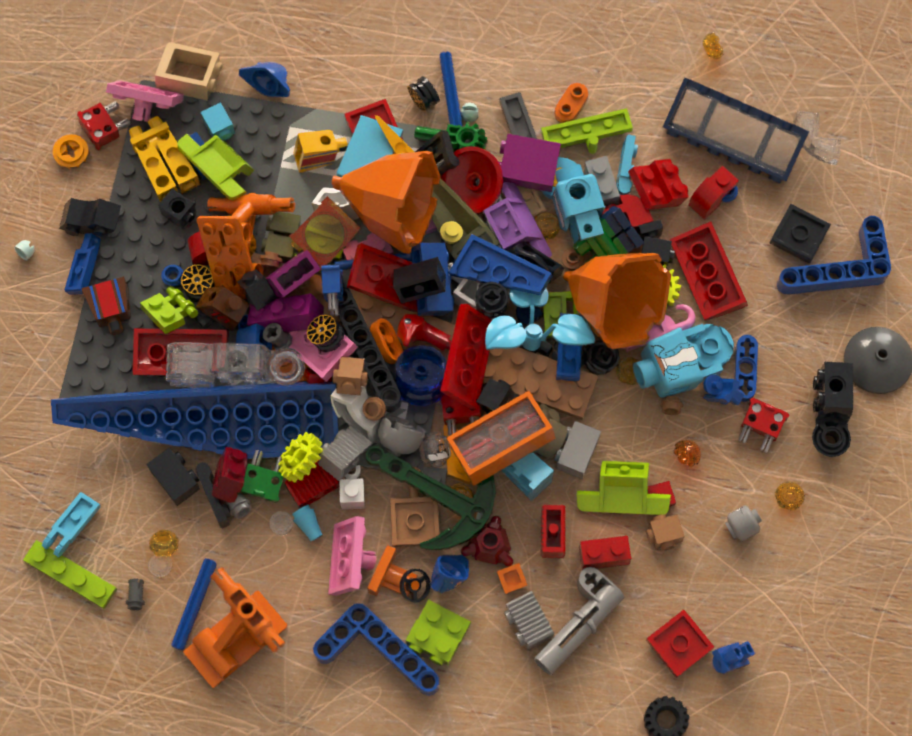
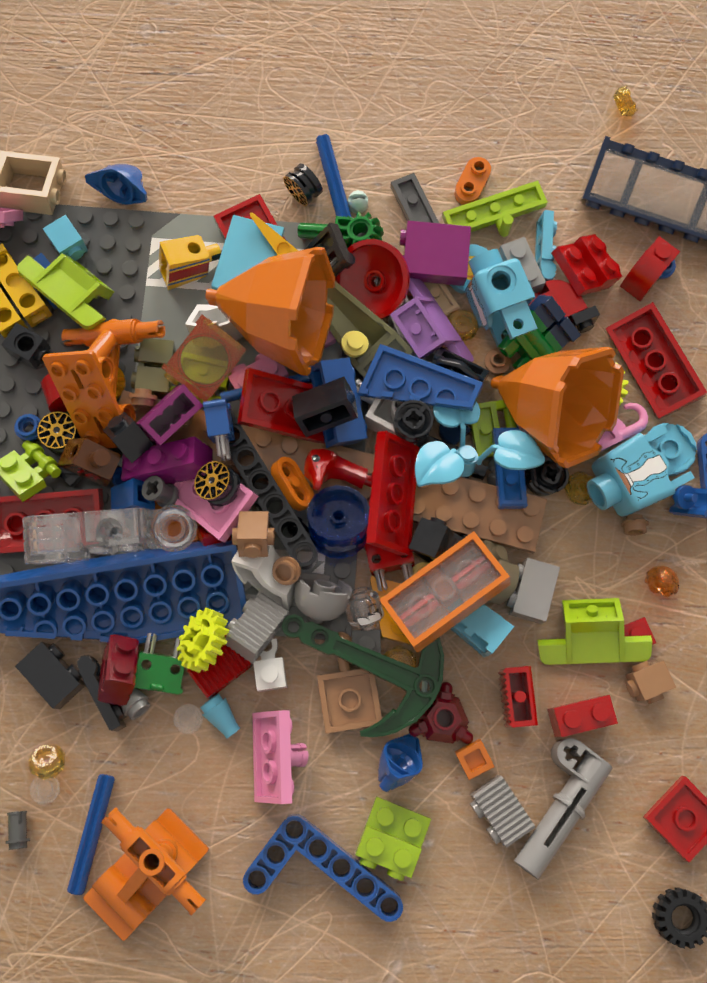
camera: 10 degrees left, 5 degrees up
(397, 578) = (338, 774): orange piece -> none
(660, 247) = (594, 338): black brick -> none

